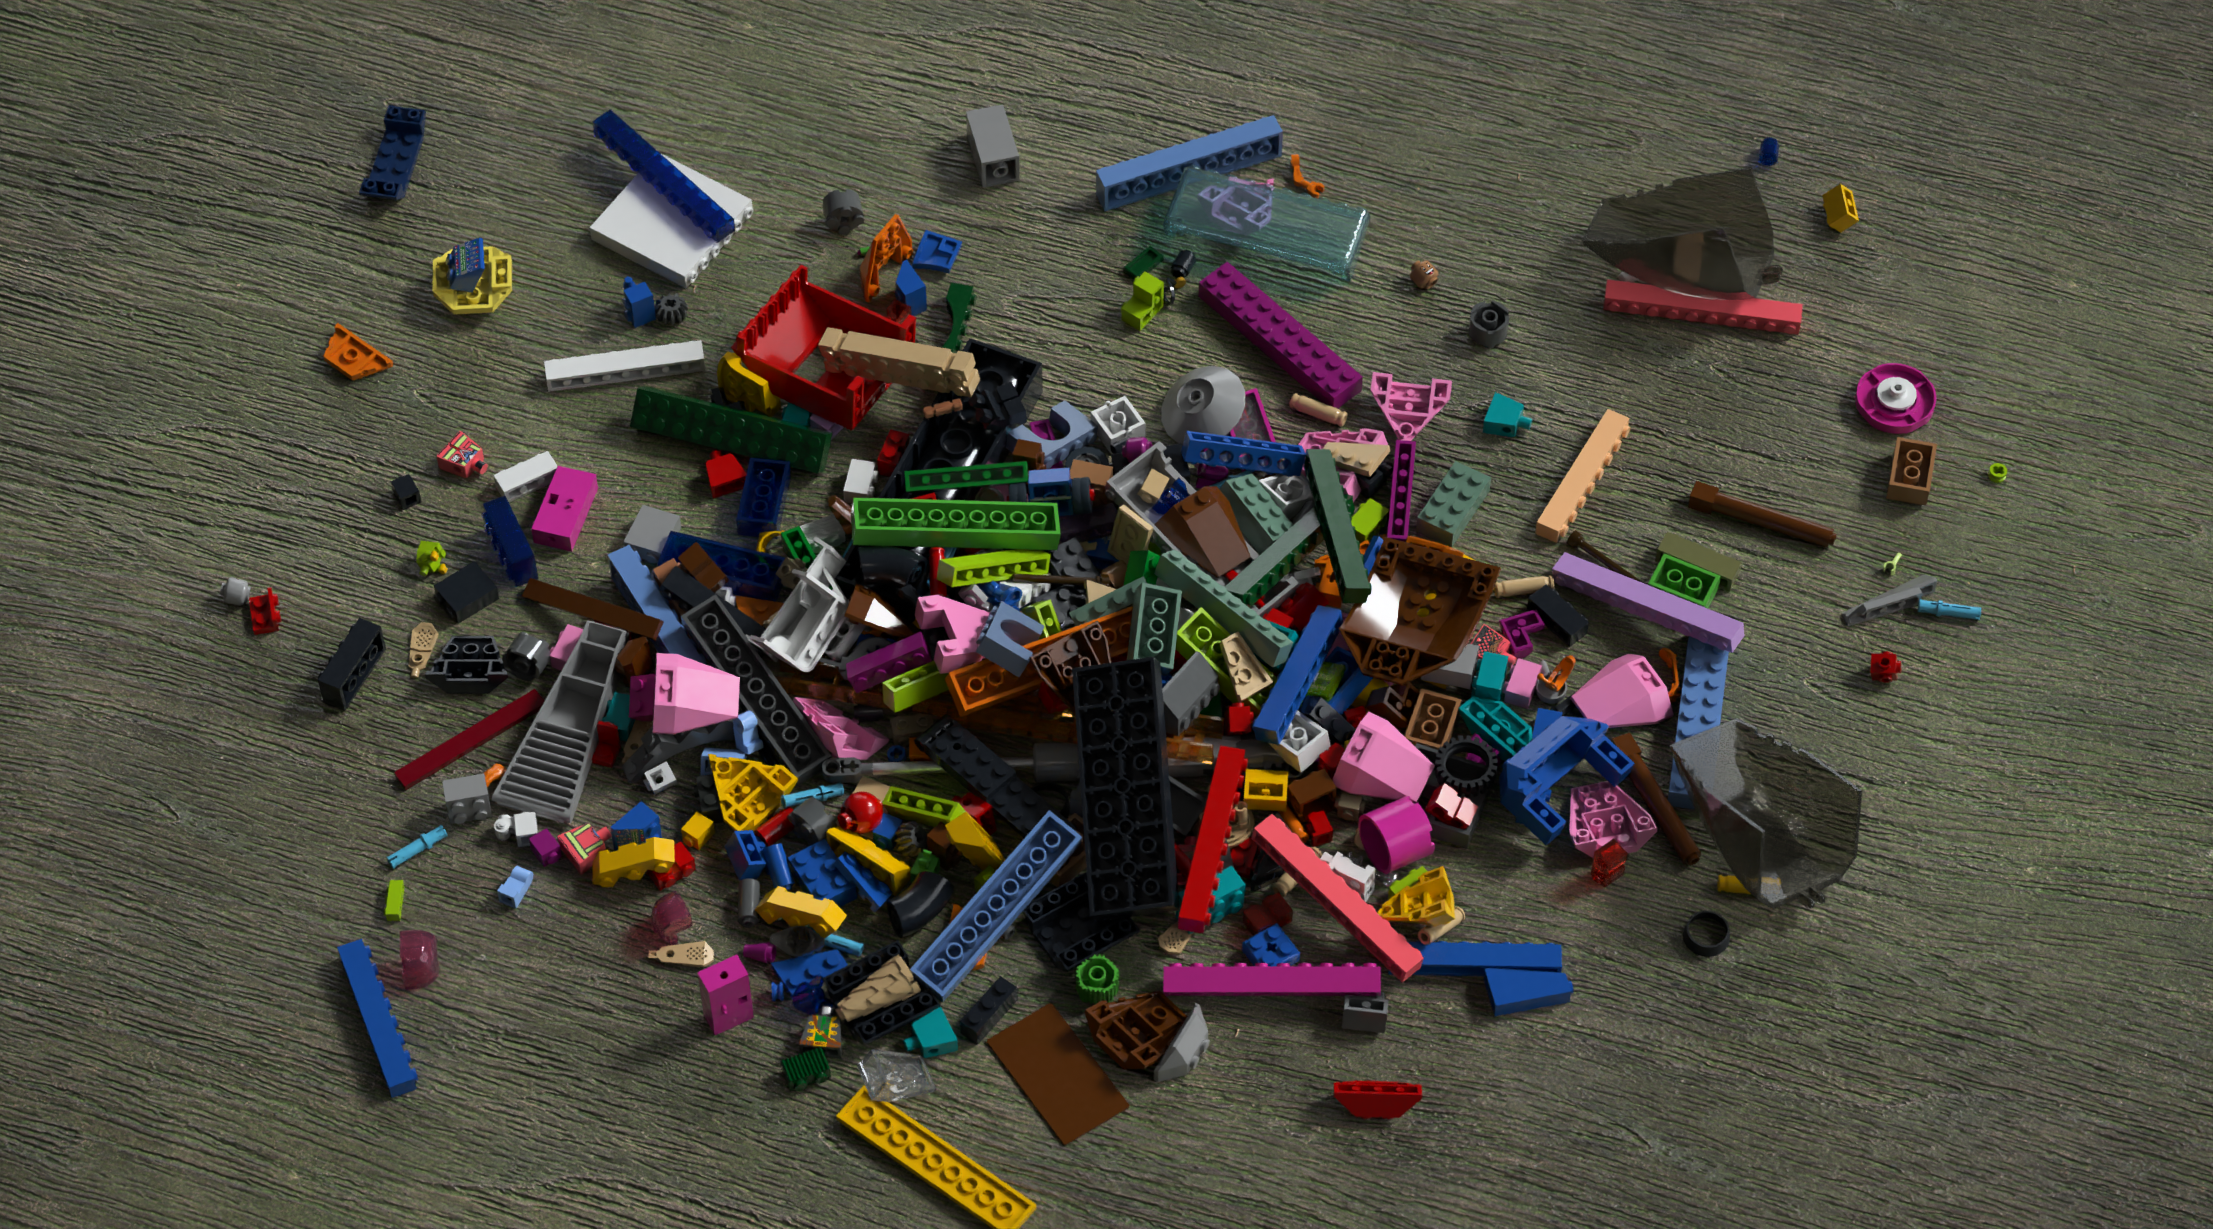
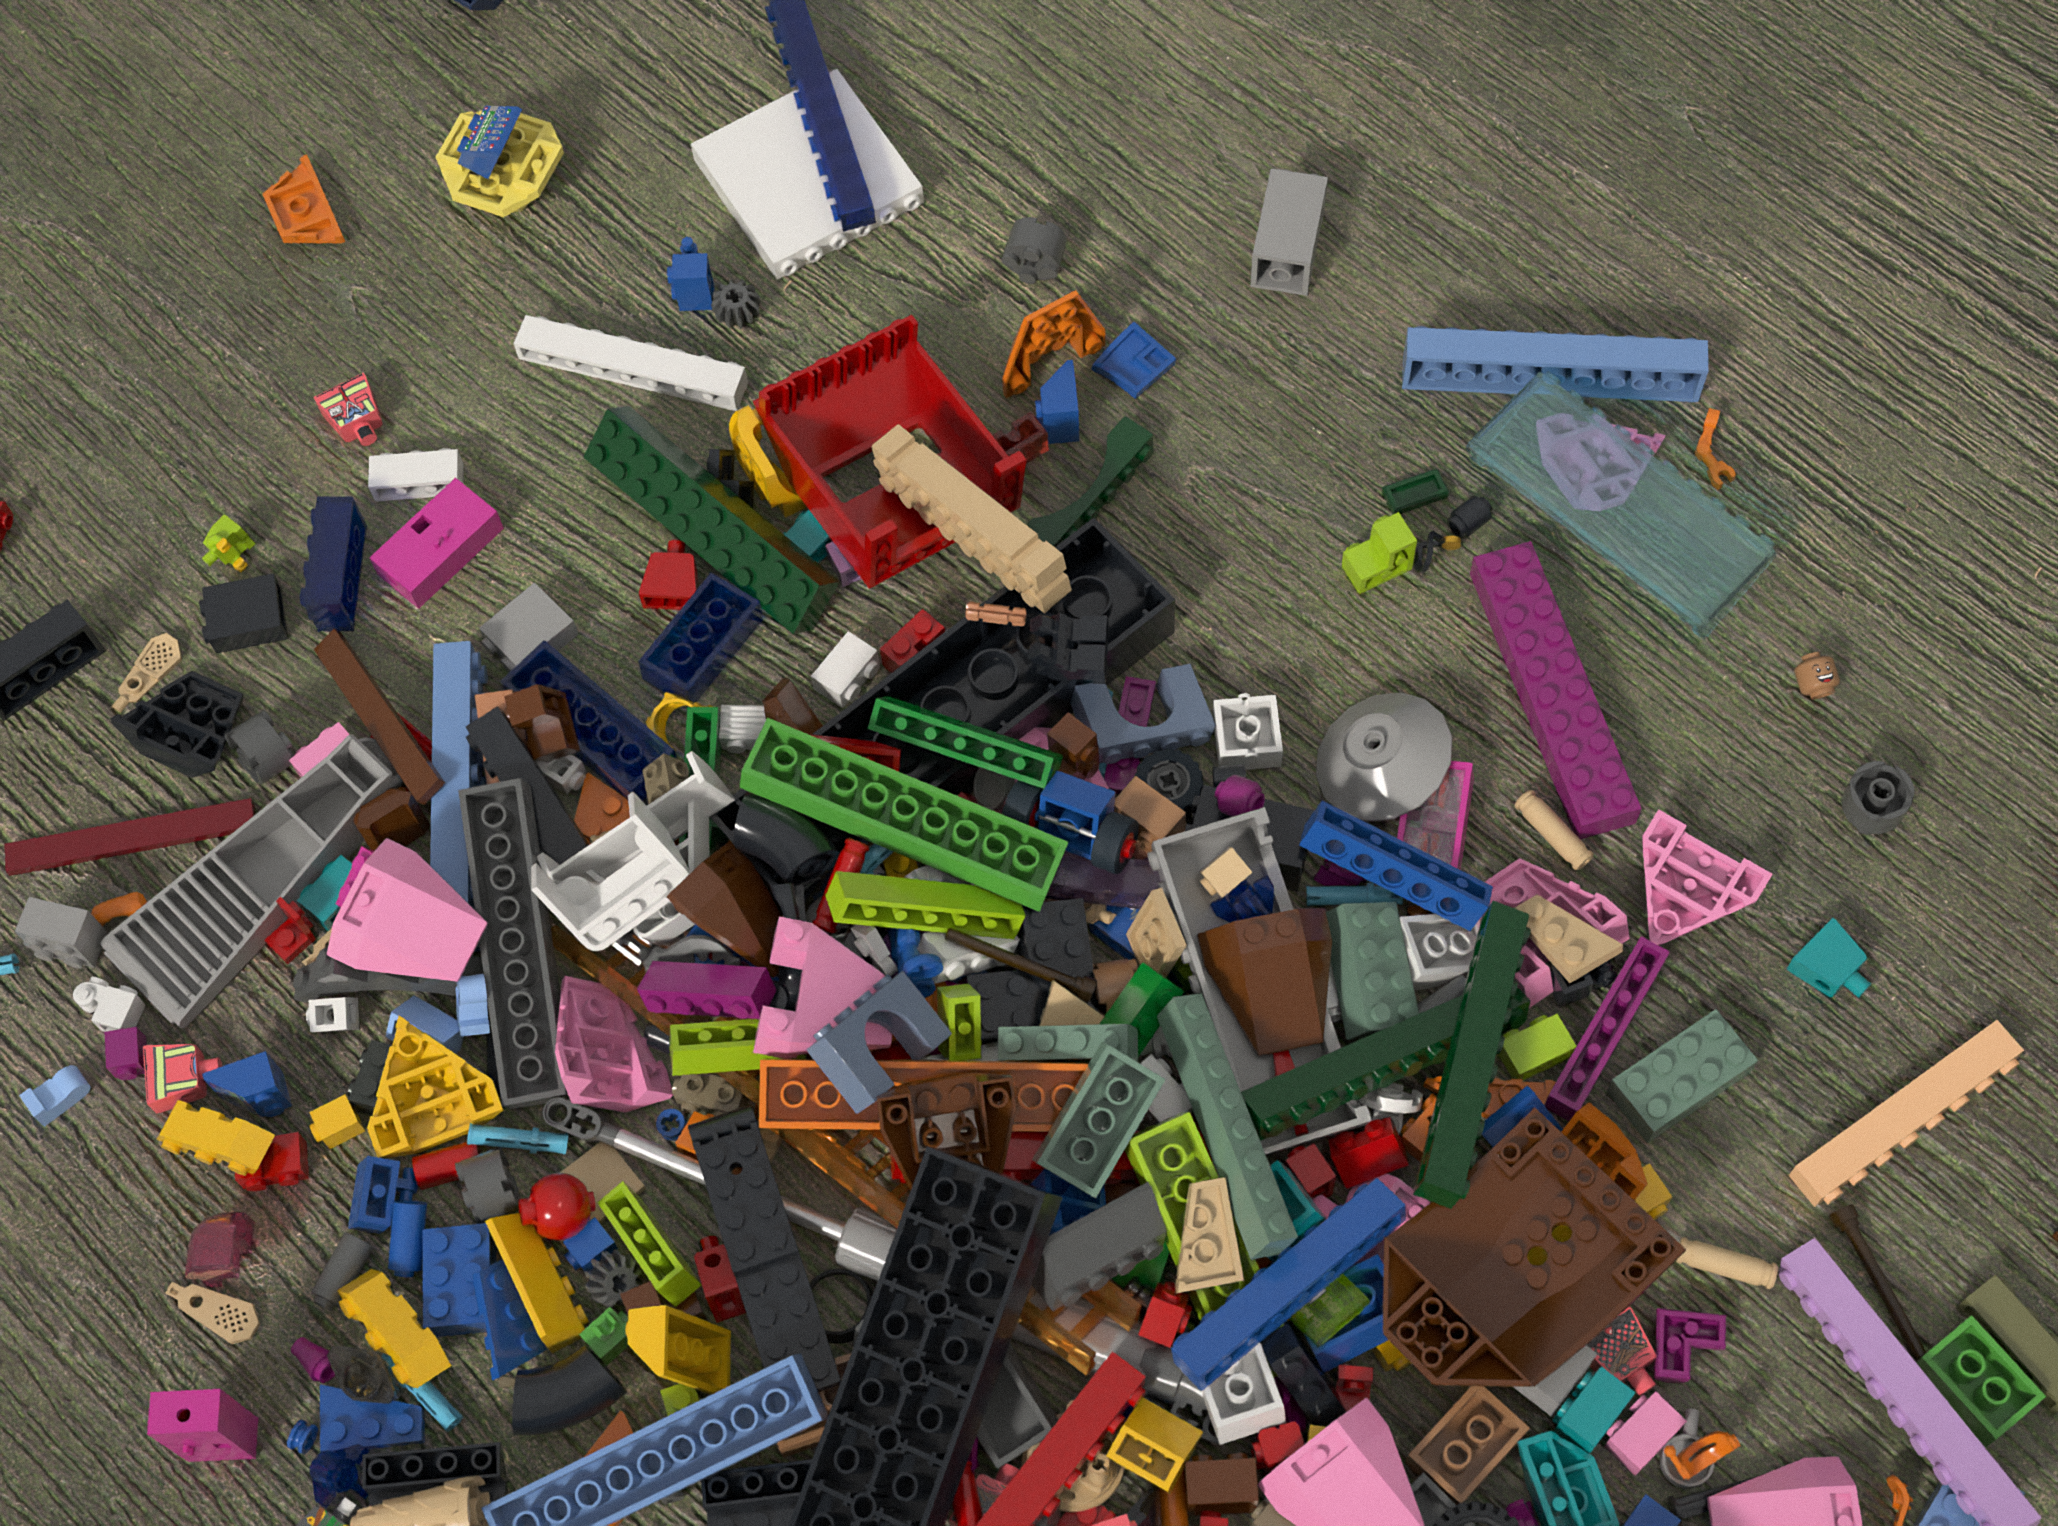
camera: 30 degrees right, 10 degrees up
(406, 491) = (253, 431): black brick -> none
(1394, 703) = (1414, 1393): reddish brown brick -> none
(1558, 615) = (1757, 1339): black brick -> none

